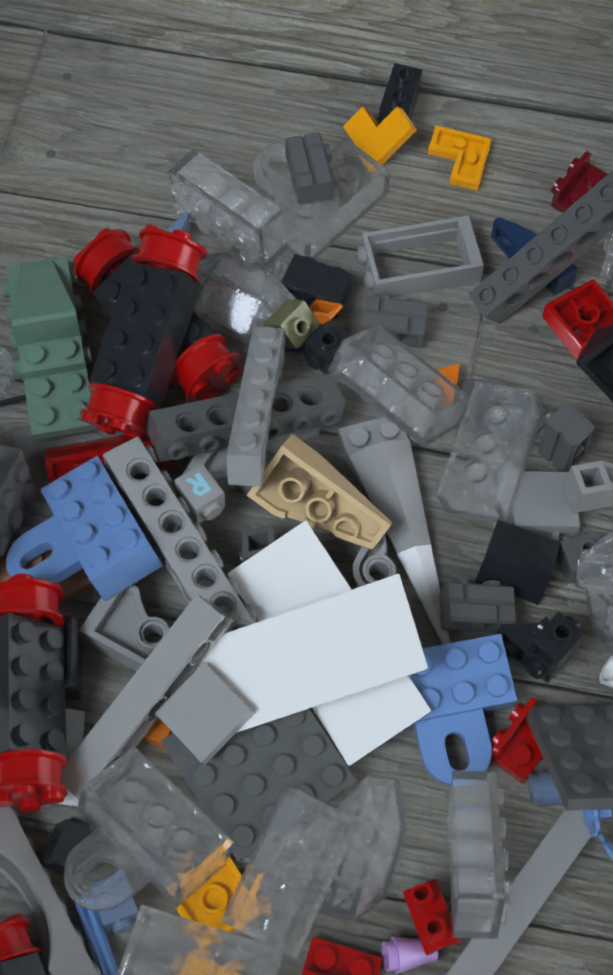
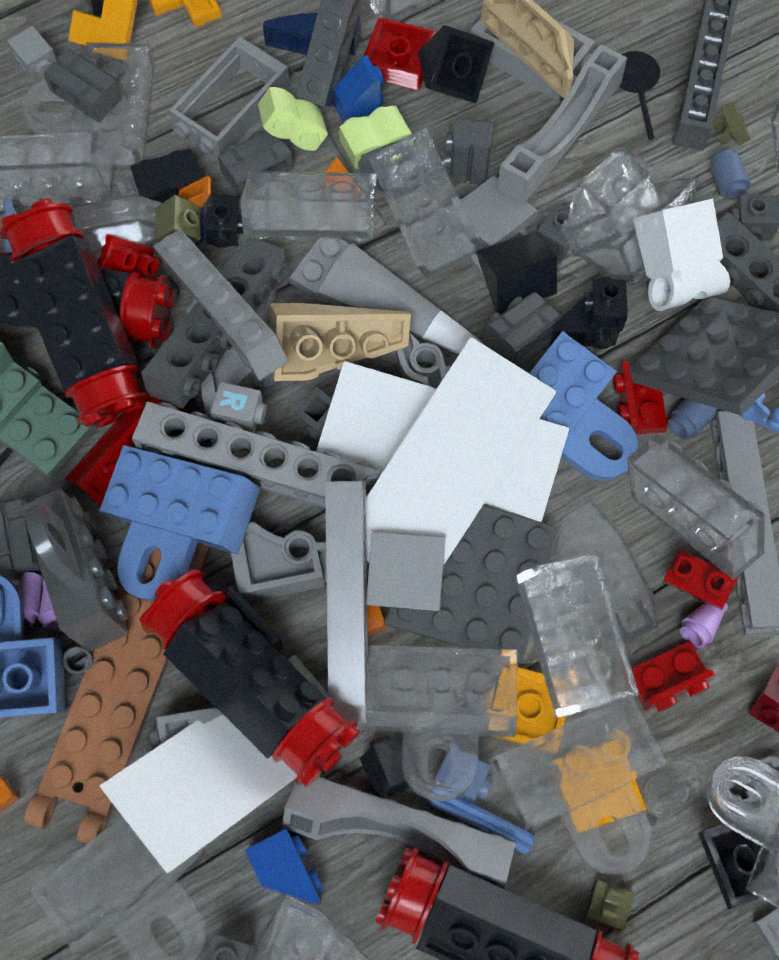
camera: 40 degrees left, 5 degrees up
(227, 320) = (127, 256): none -> red hips
(305, 115) = (31, 53): none -> light grey brick
(449, 309) = (292, 118): none -> yellowish green brick
(508, 366) = (370, 132): none -> yellowish green brick
(521, 329) = (359, 90): none -> blue slope

